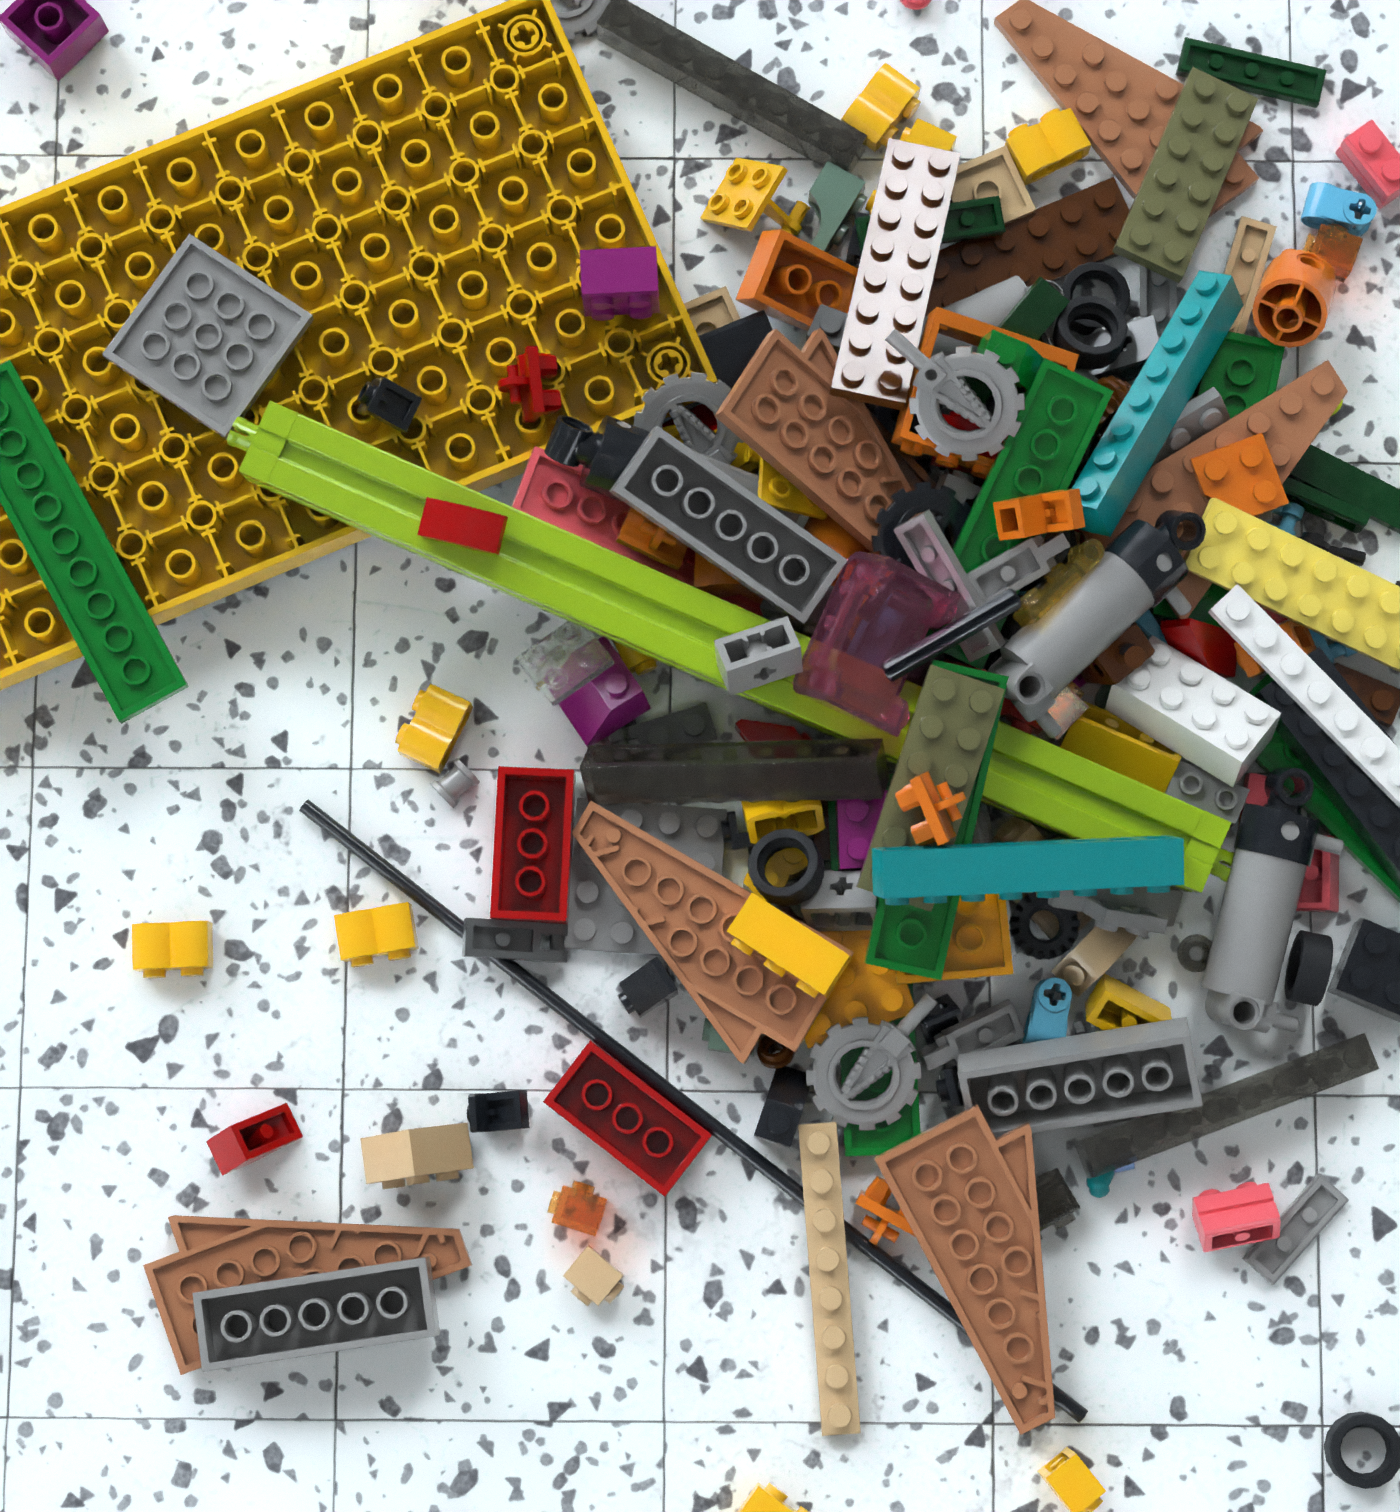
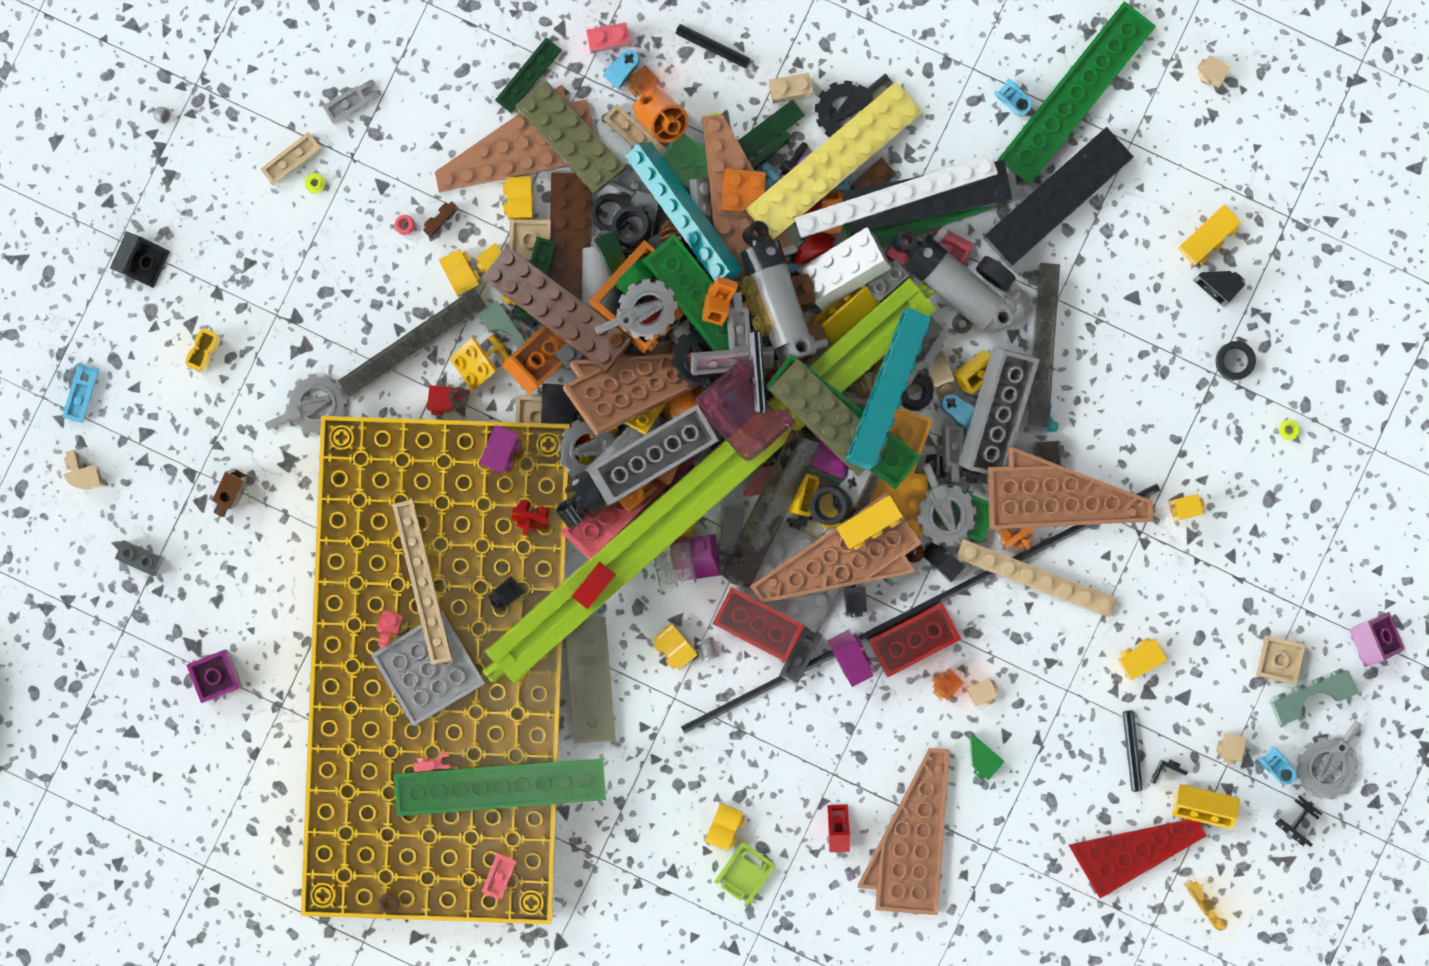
camera: 65 degrees left, 5 degrees up
(49, 403) = (425, 763): none -> coral plate
(106, 1017) = (743, 876): none -> lime container
(250, 240) = (388, 625): none -> coral plate
(315, 617) = (590, 682): none -> olive plate
(316, 1314) = (939, 834): light grey brick -> none
(343, 260) = (422, 582): none -> tan plate
(376, 933) = (764, 722): yellow brick -> none
(416, 1155) = (884, 751): tan brick -> none
(481, 1331) = (983, 759): none -> green slope
(498, 1111) = (881, 702): black bracket -> none
(546, 1023) = (851, 658): none -> magenta brick
(667, 179) = (438, 400): none -> red slope
(683, 181) = (451, 396): none -> clear smoke plate
(758, 655) = (725, 470): light grey brick -> none
(937, 824) = (840, 419): orange hips -> none
(942, 36) = (446, 211): none -> reddish brown plate
(1235, 1216) = (1098, 367): coral brick -> none
(1298, 1228) = (1117, 340): light grey tile -> none

